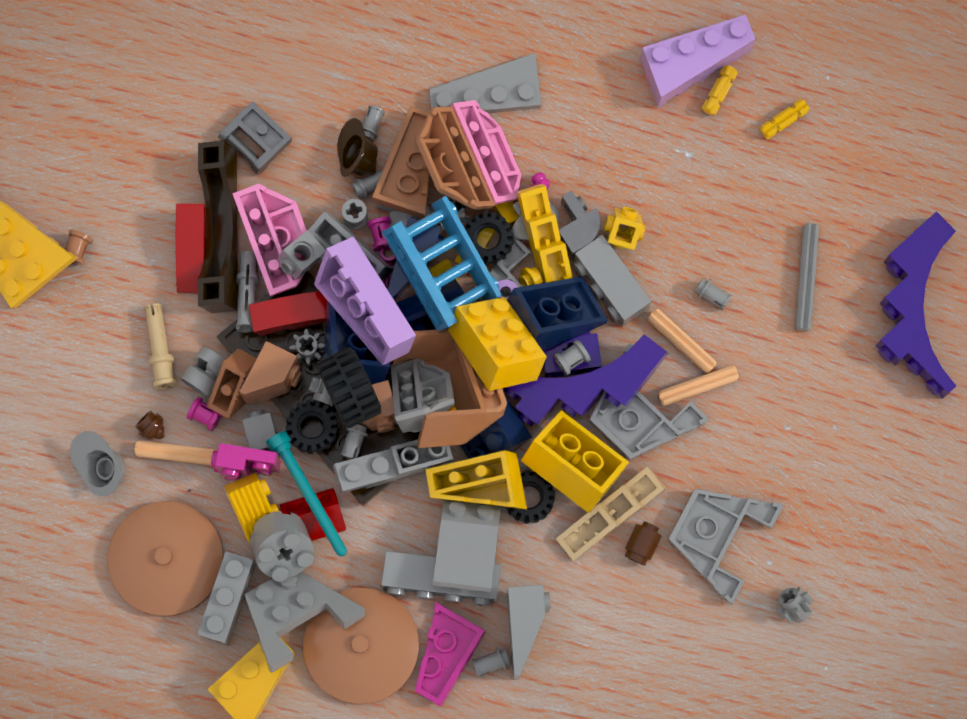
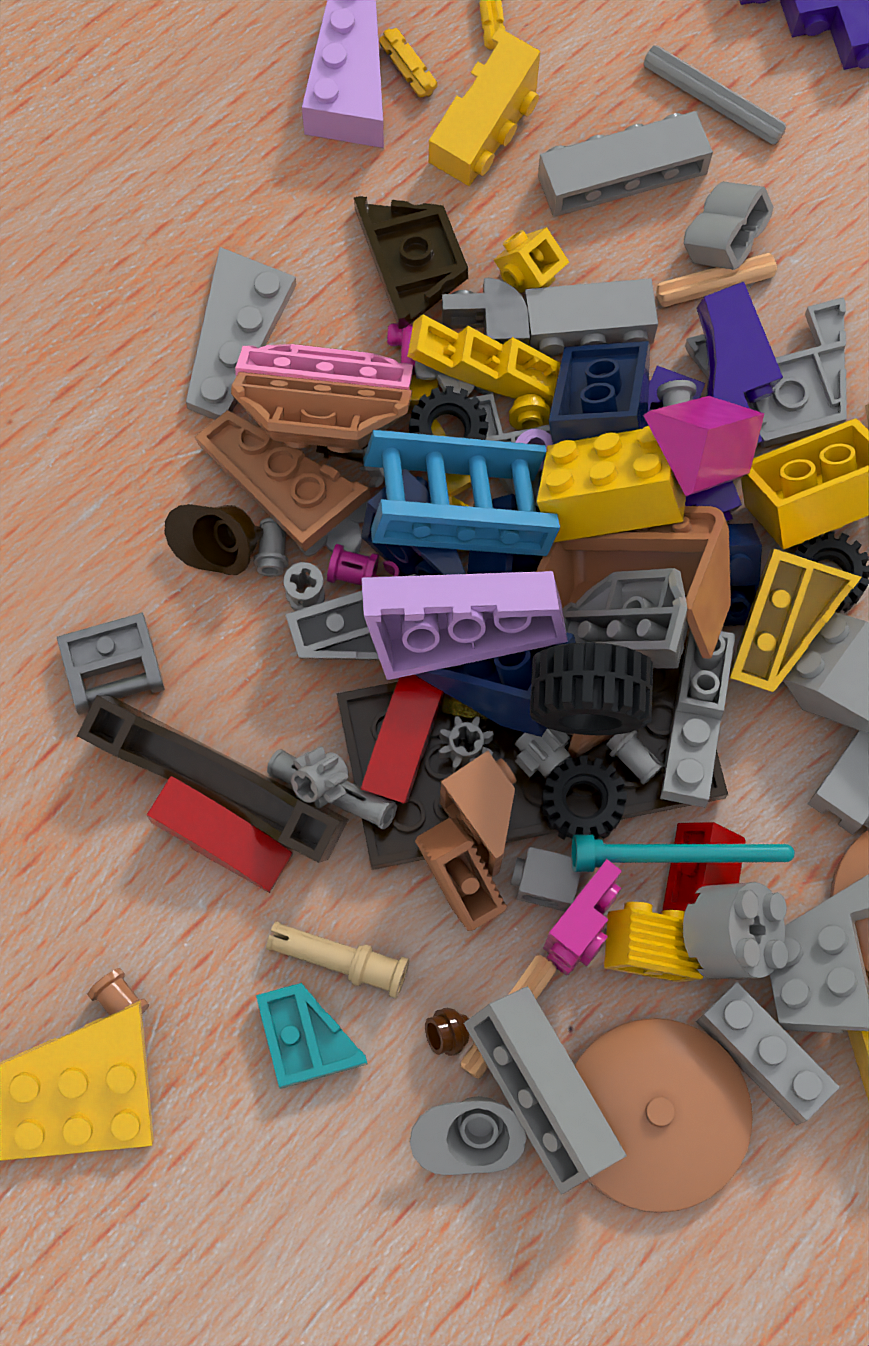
camera: 60 degrees left, 5 degrees down
(107, 352) = (304, 1037): none -> teal wing
(140, 487) = (544, 1089): none -> light grey brick
(200, 412) = (474, 945): dark pink bush -> none
(204, 373) = (420, 924): light grey wheel -> none
(242, 279) = (319, 777): none -> light grey gear
(271, 226) = (278, 705): bright pink wedge -> none
(308, 247) = (334, 660): light grey brick -> none
(372, 121) = (181, 492): light grey pin -> none
(546, 378) = (706, 441): none -> dark pink slope
(592, 160) = (412, 254): none -> dark brown wing
(698, 385) = (786, 292): light nougat axle -> none
(707, 152) = (488, 111): none -> yellow wedge
(712, 293) = (666, 214): light grey pin -> none
(716, 328) = (728, 225): none -> light grey brick
(725, 248) = (624, 163): none -> light grey brick

